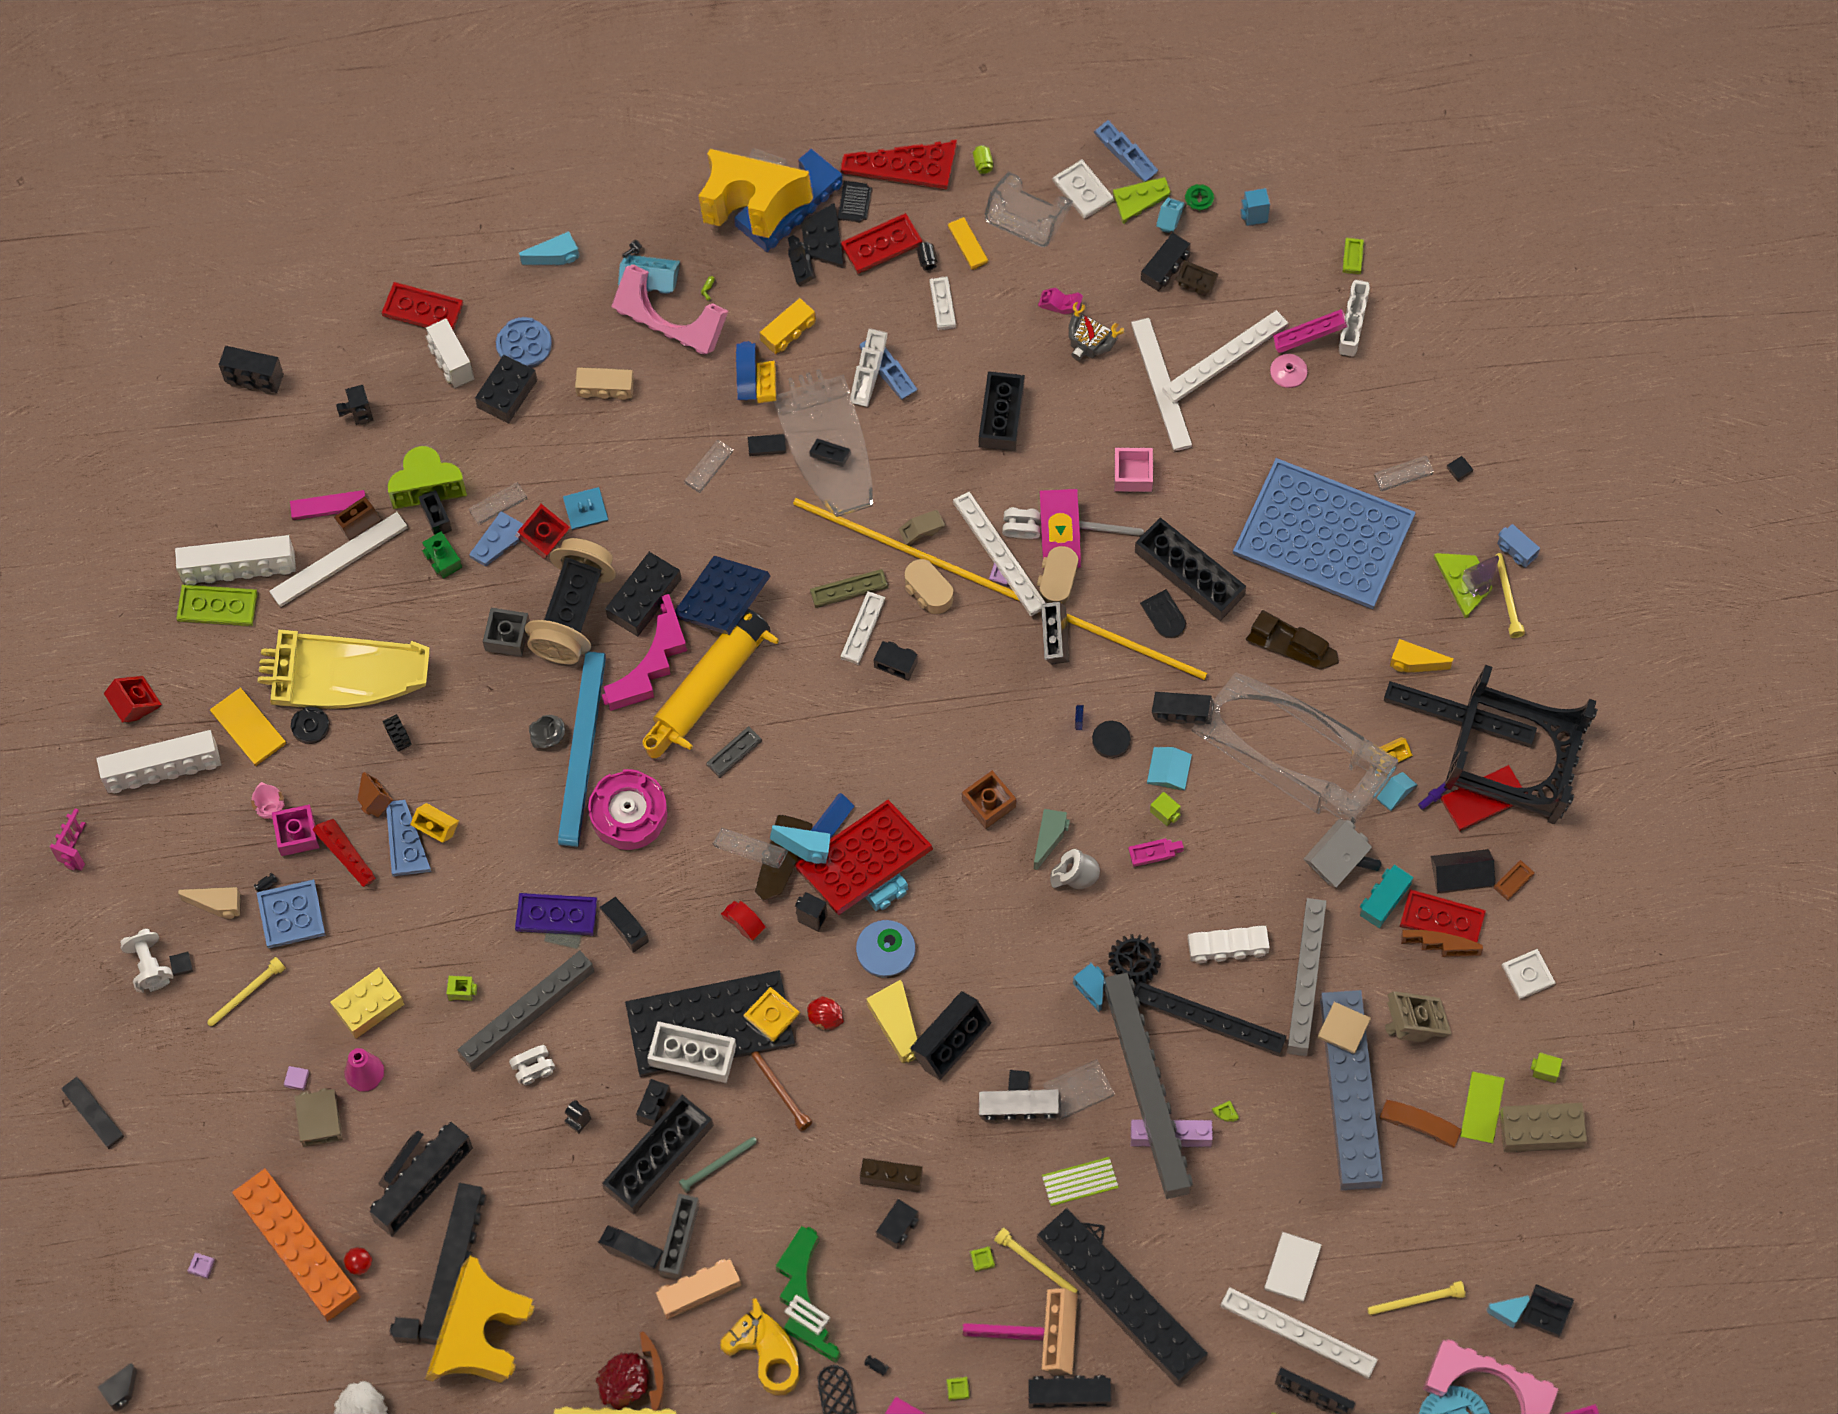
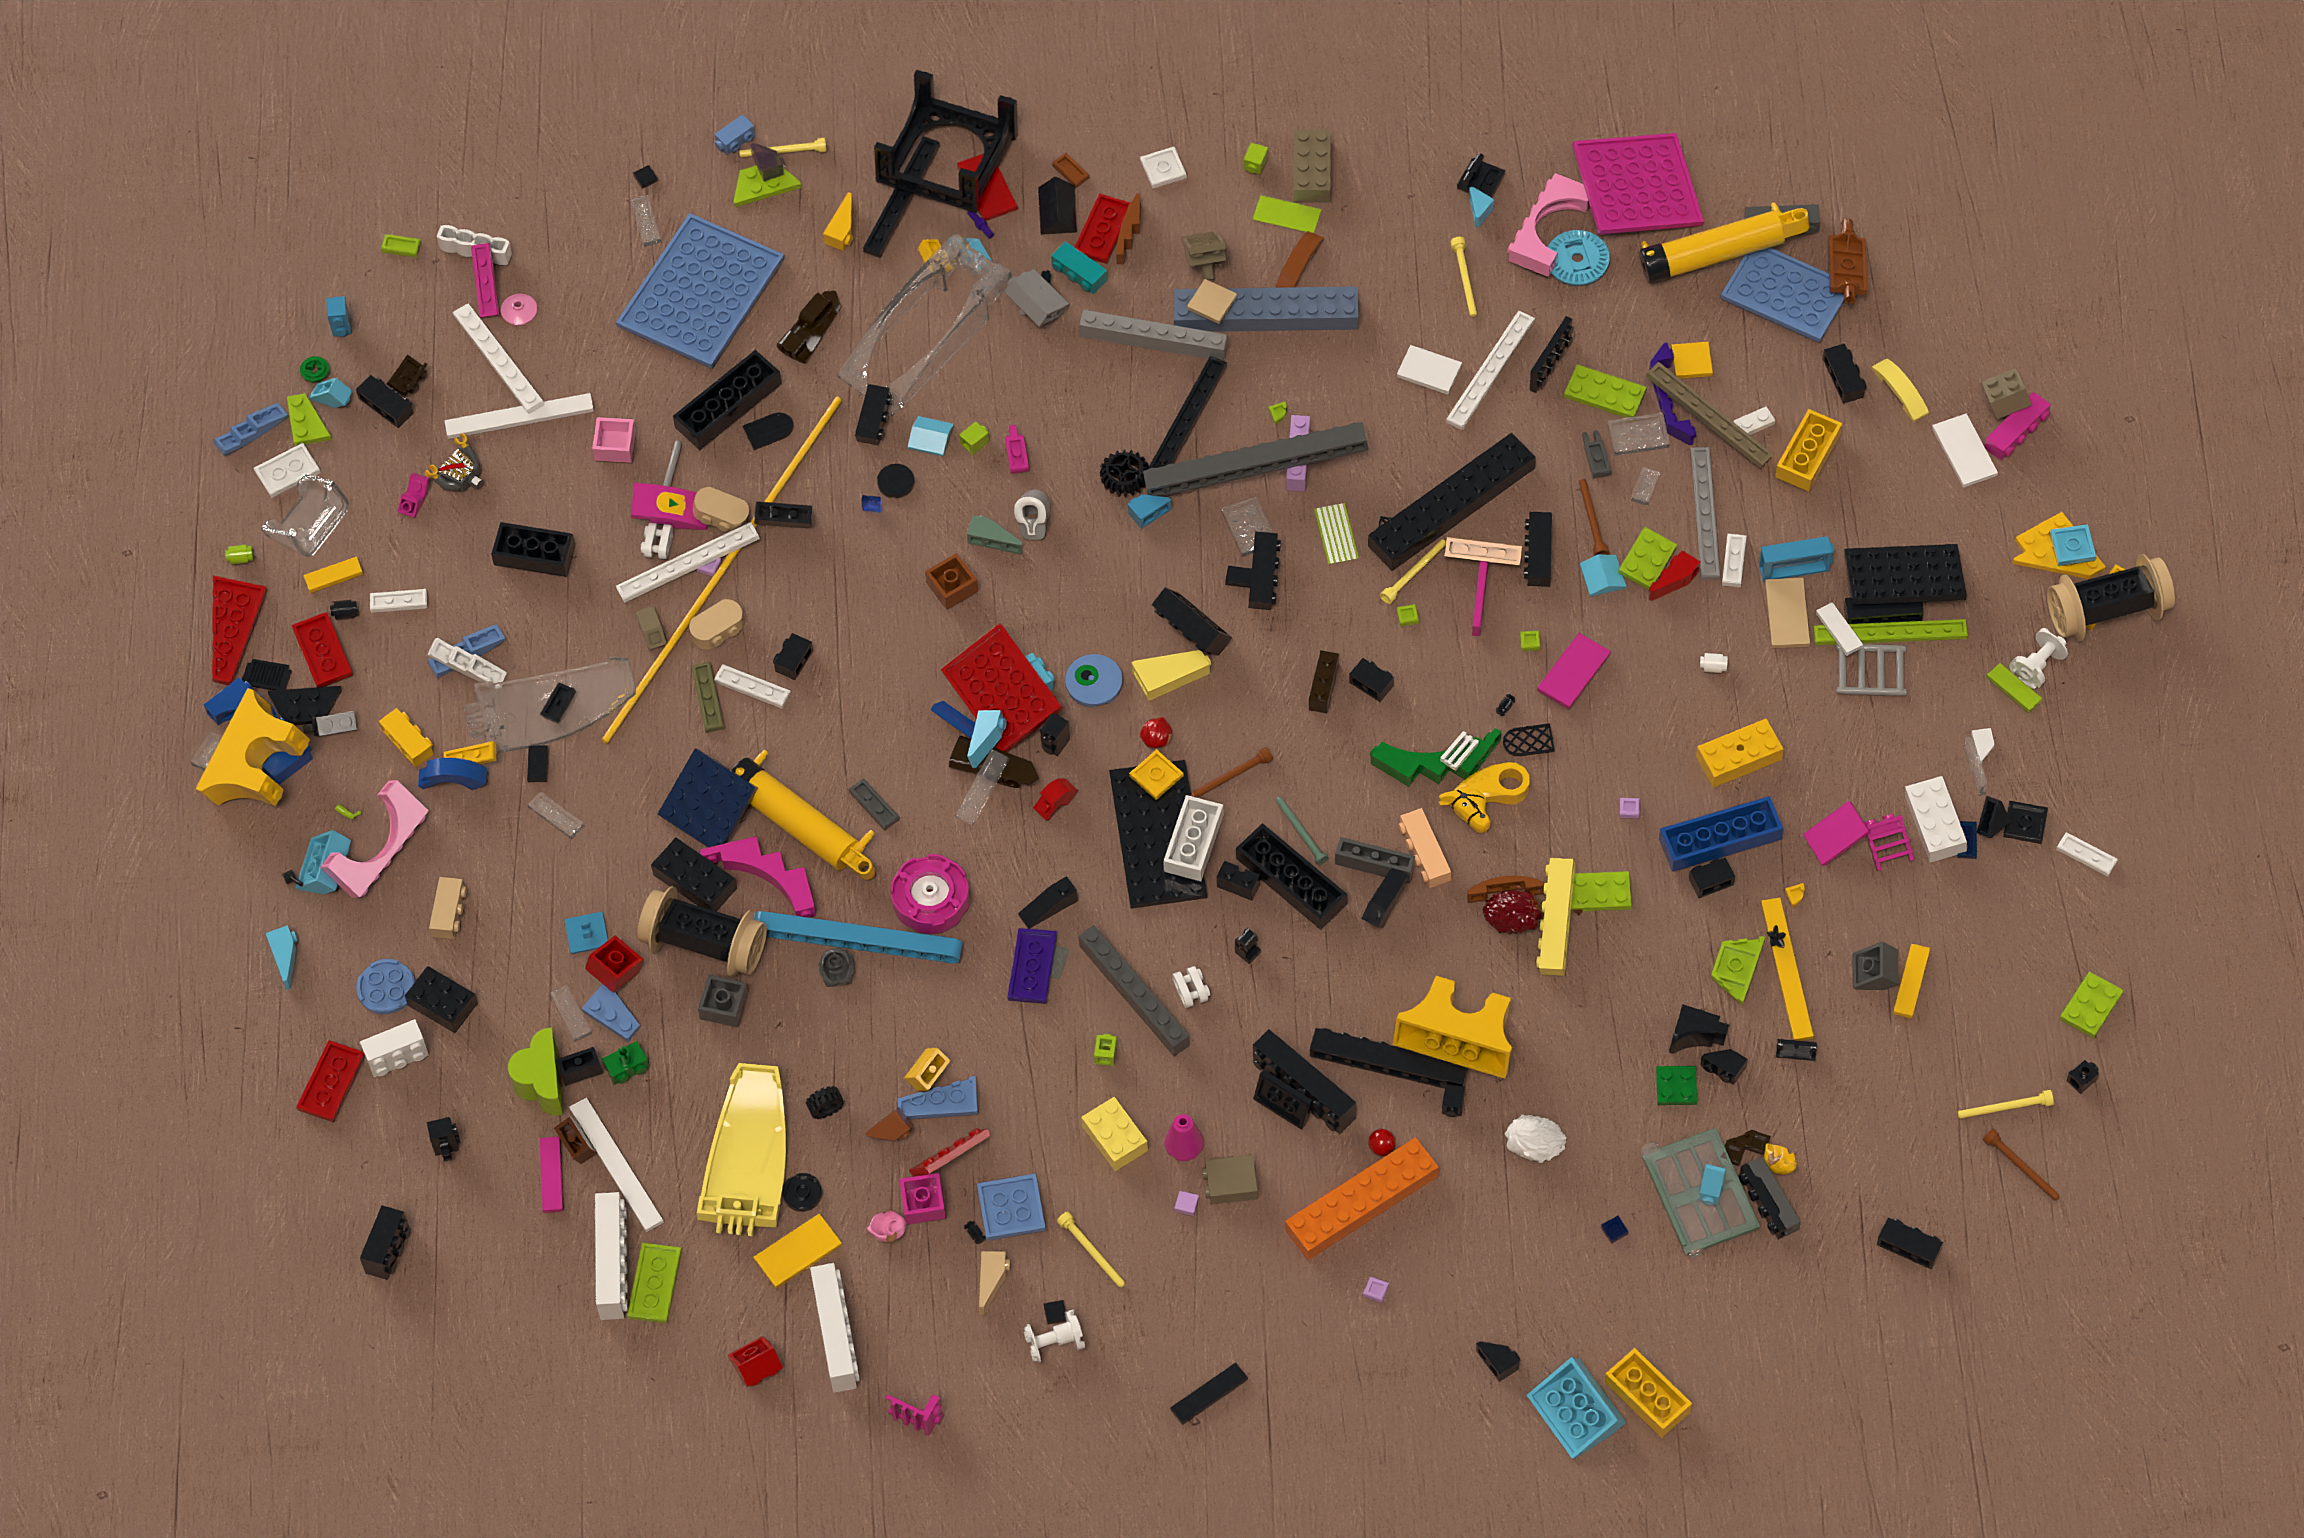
camera: 85 degrees left, 5 degrees down
(1228, 943) = (1115, 396): white brick -> none

